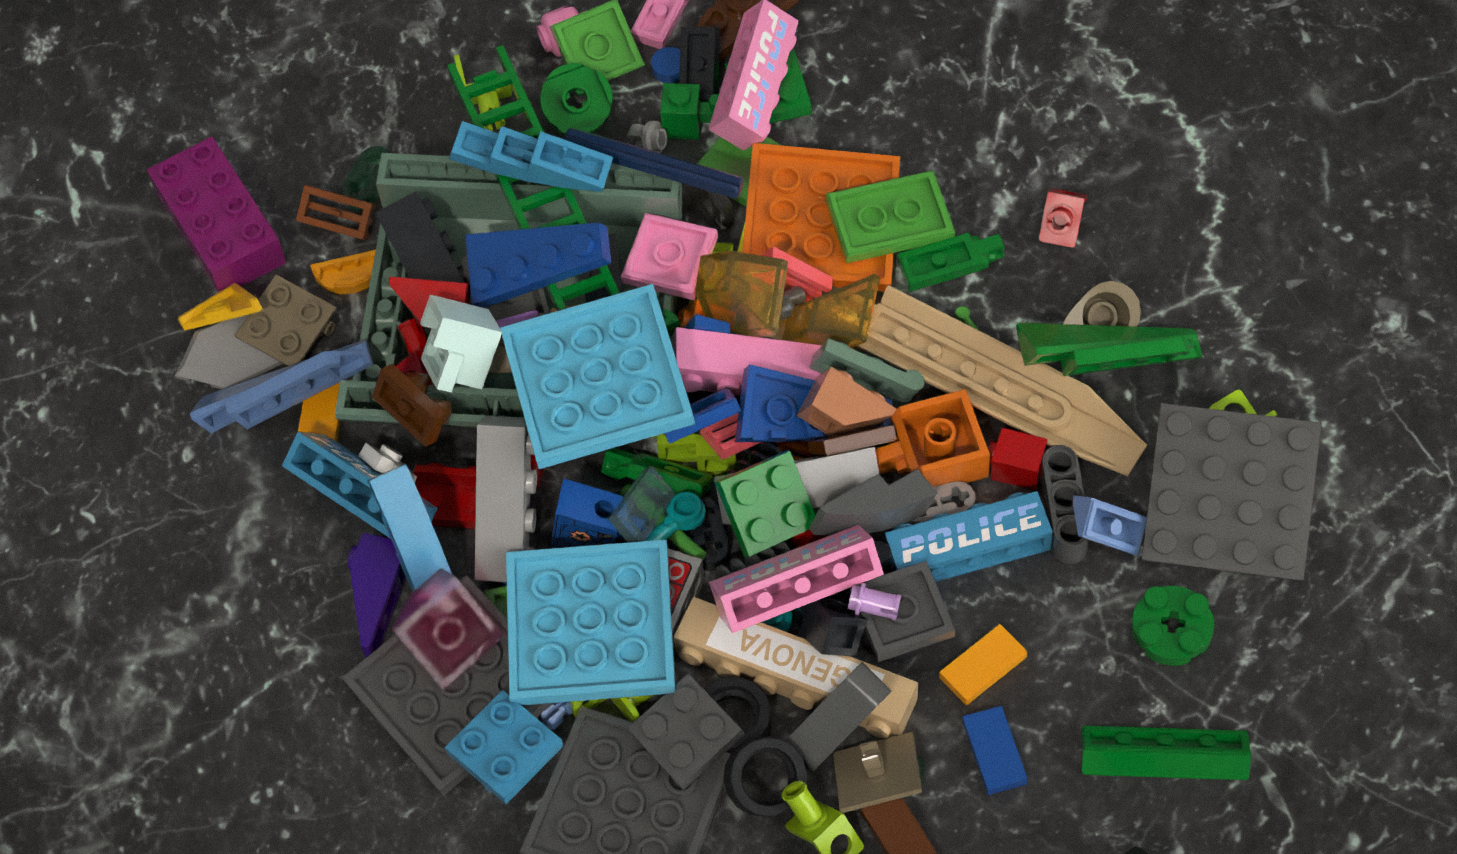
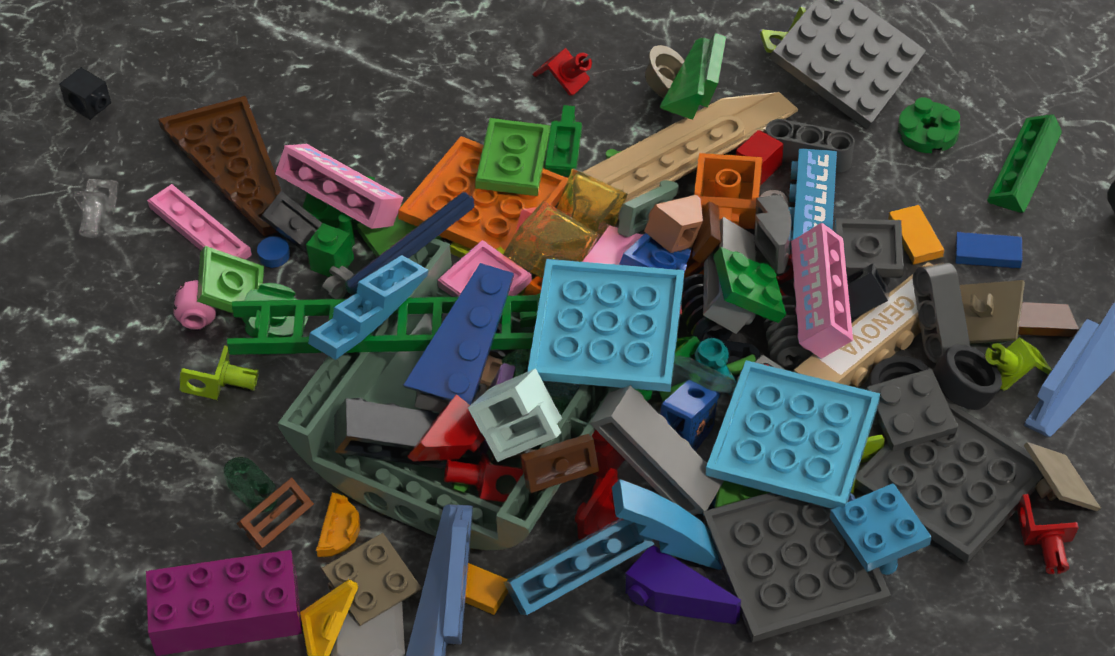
camera: 70 degrees left, 10 degrees down
(382, 459) = (560, 539): white plate -> none
(445, 628) = (750, 526): clear pink slope -> none
(874, 602) = (859, 256): lavender pin -> none
(1109, 524) = (841, 120): medium blue slope -> none

